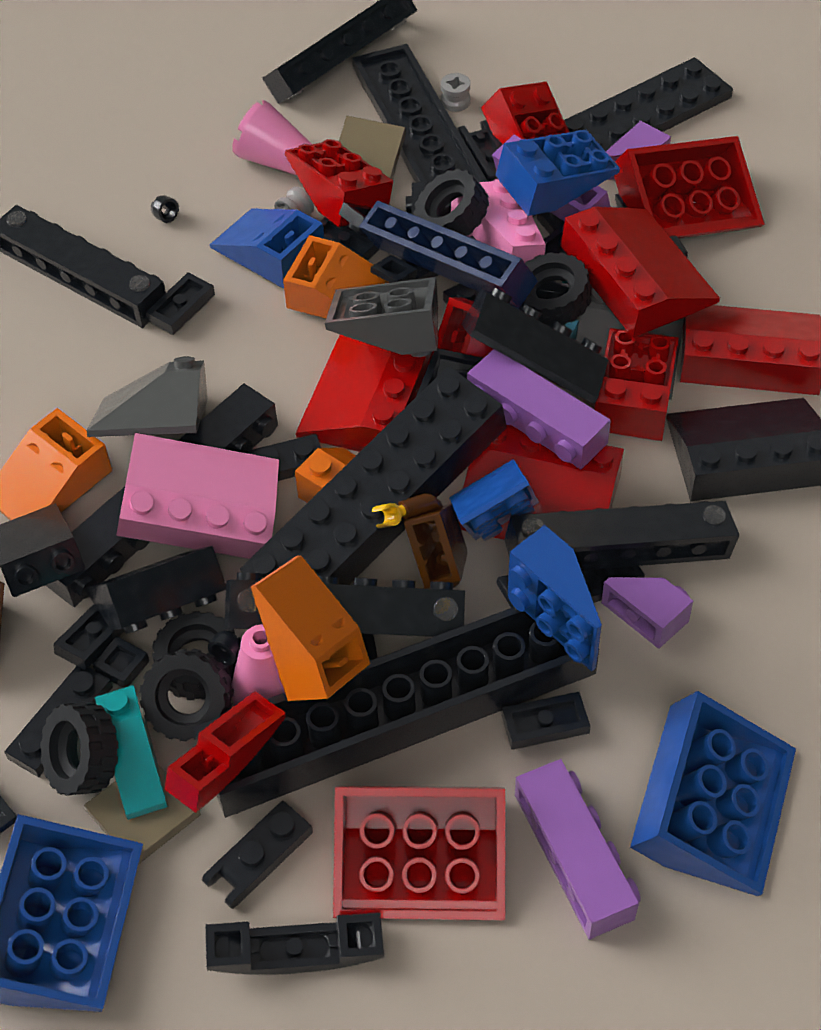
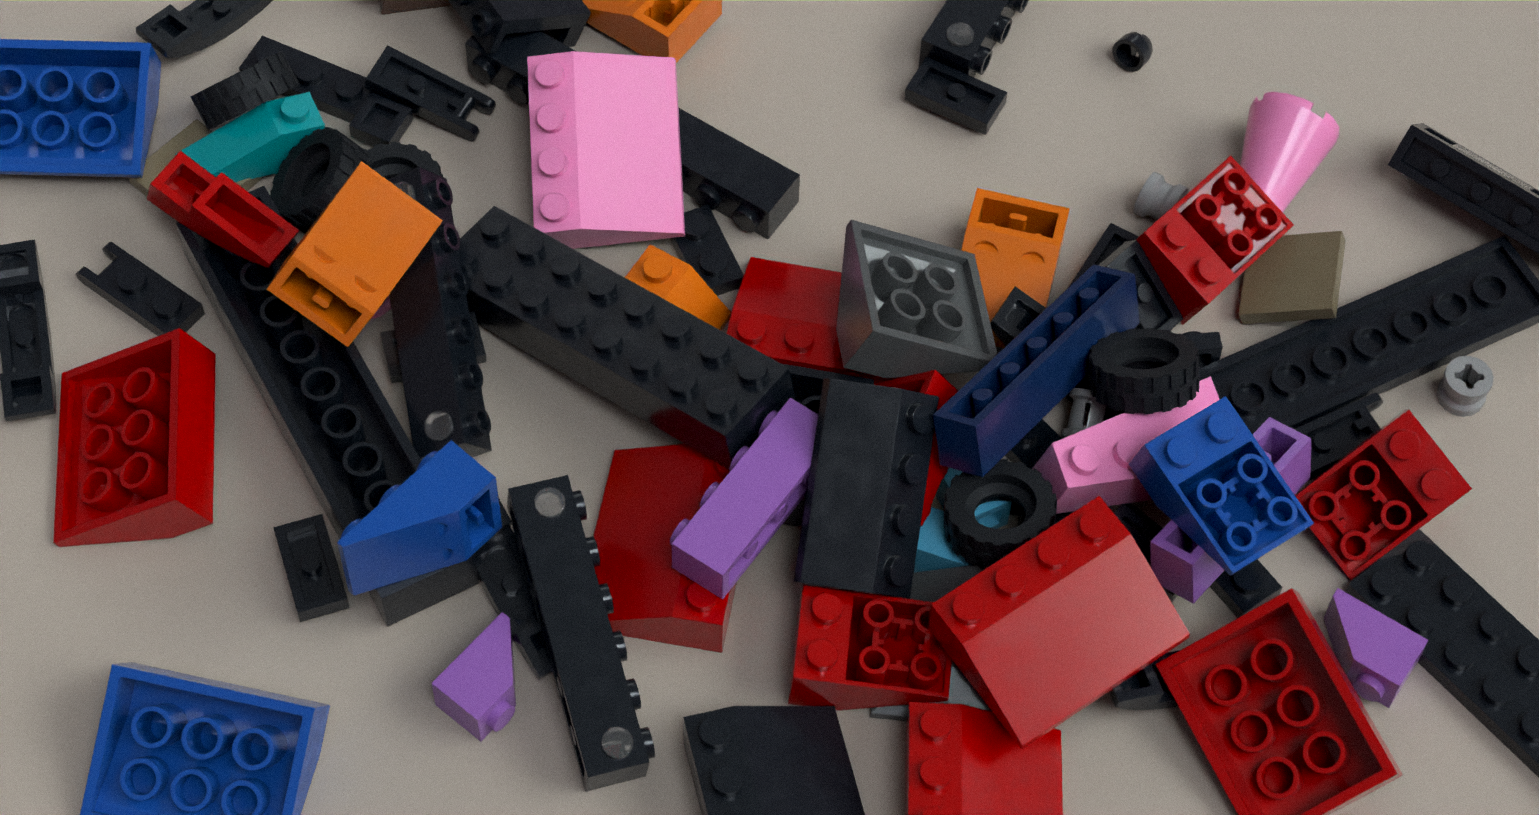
camera: 80 degrees right, 5 degrees up
(157, 403) = (748, 86): dark grey slope -> none
(159, 589) = (467, 130): black slope -> none
(268, 240) = (1084, 171): blue slope -> none
(432, 535) = (553, 406): reddish brown torso -> none
(493, 500) = (606, 461): blue slope -> none
(576, 849) = (134, 604): medium lavender brick -> none

